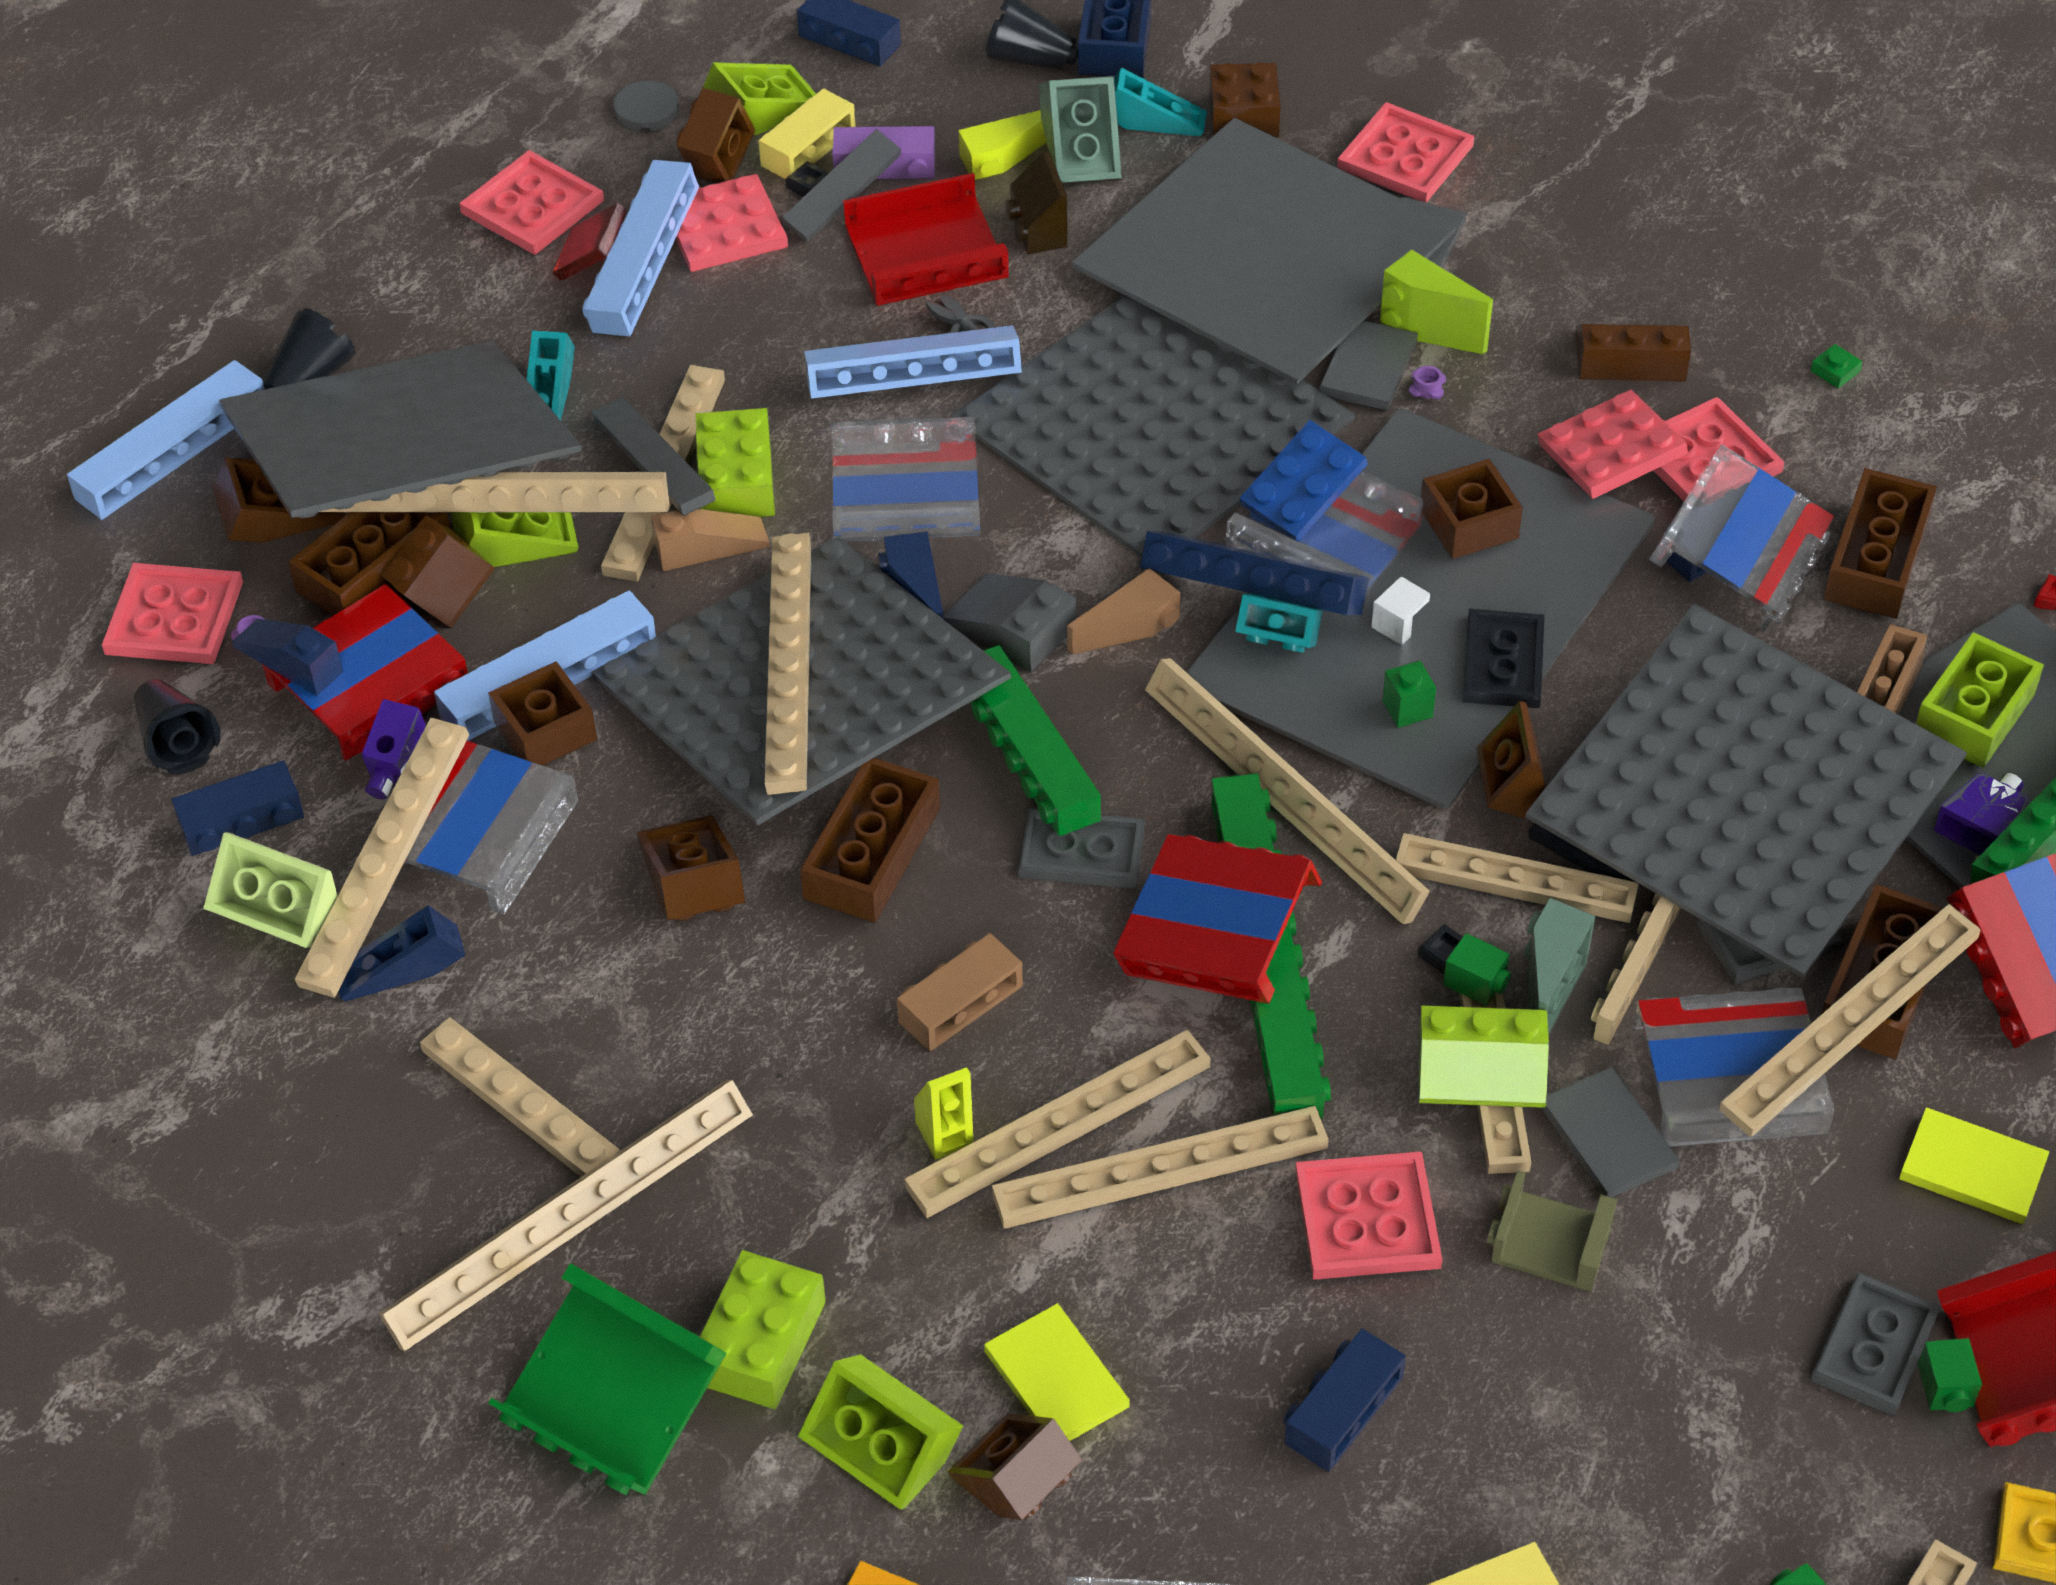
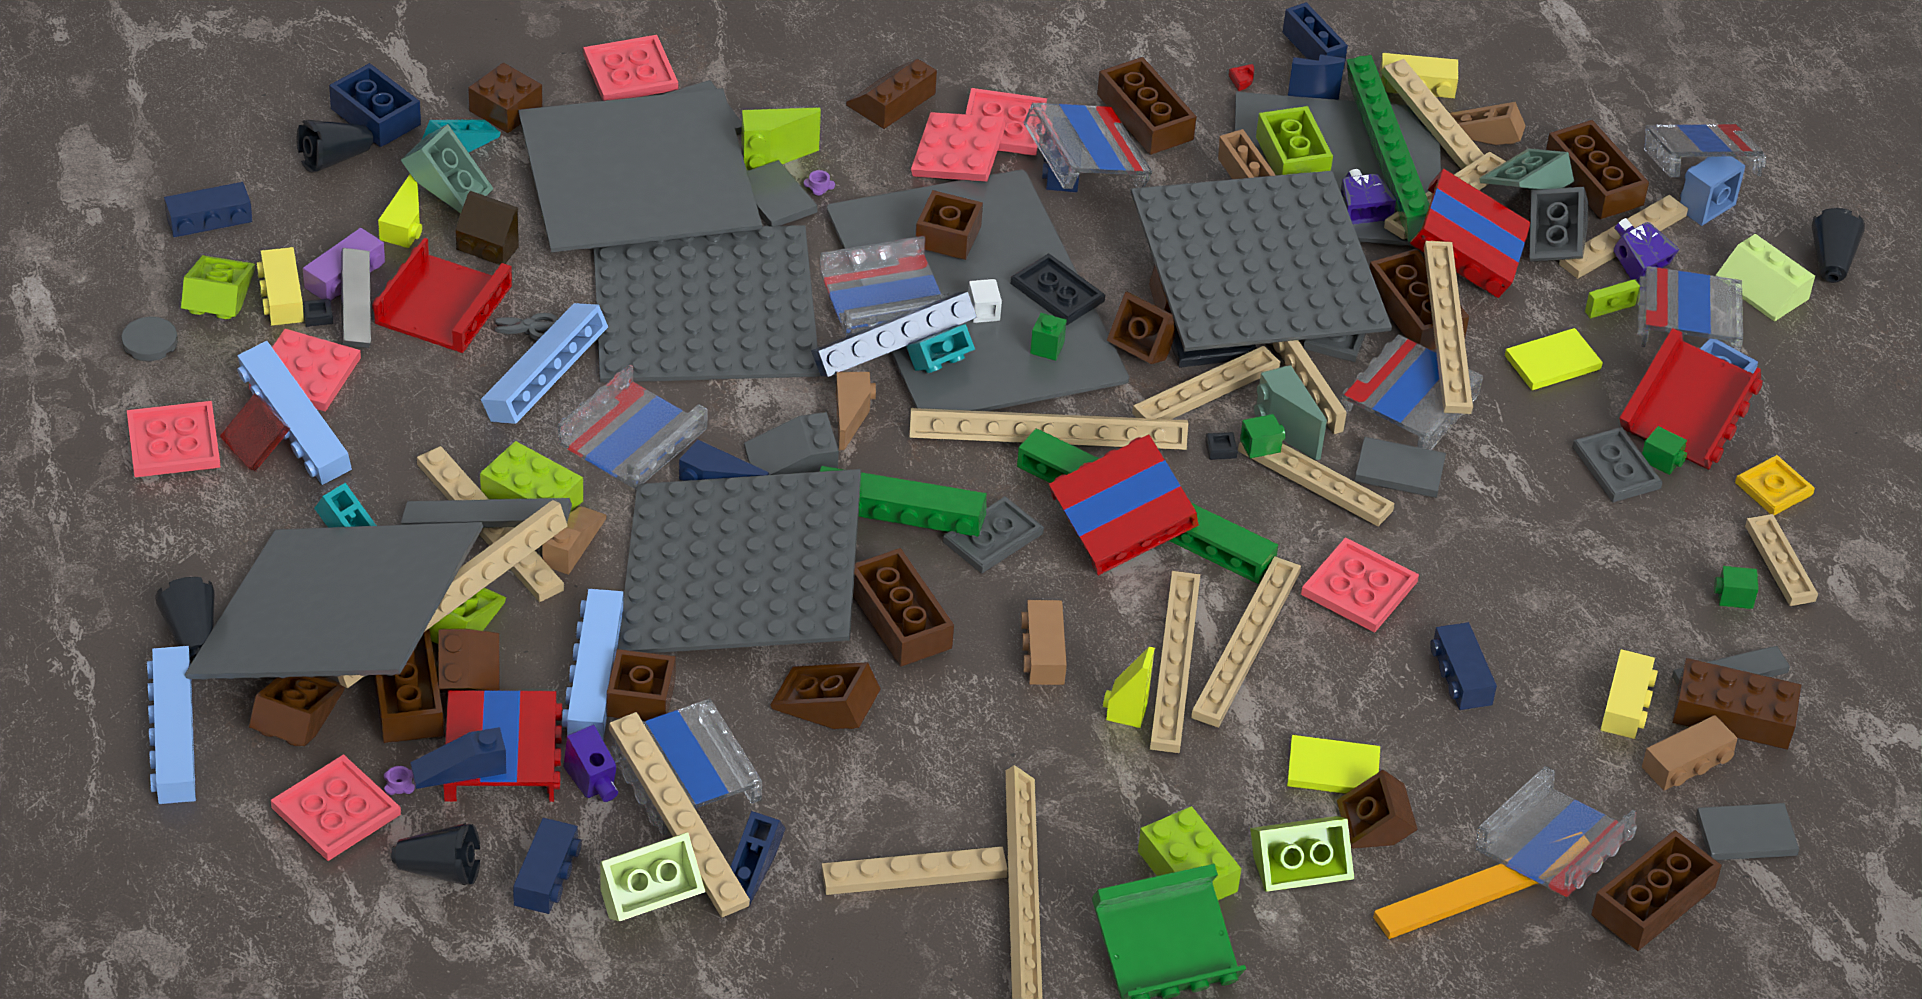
camera: 55 degrees left, 5 degrees down
(715, 136) = (247, 316): reddish brown brick -> none
(788, 665) = (736, 554): tan plate -> none
(1303, 481) = (851, 270): blue plate -> none
(1483, 1056) = (1318, 471): lime slope -> none
(1550, 1236) = (1445, 528): olive panel -> none
(1836, 366) = (997, 34): green plate -> none

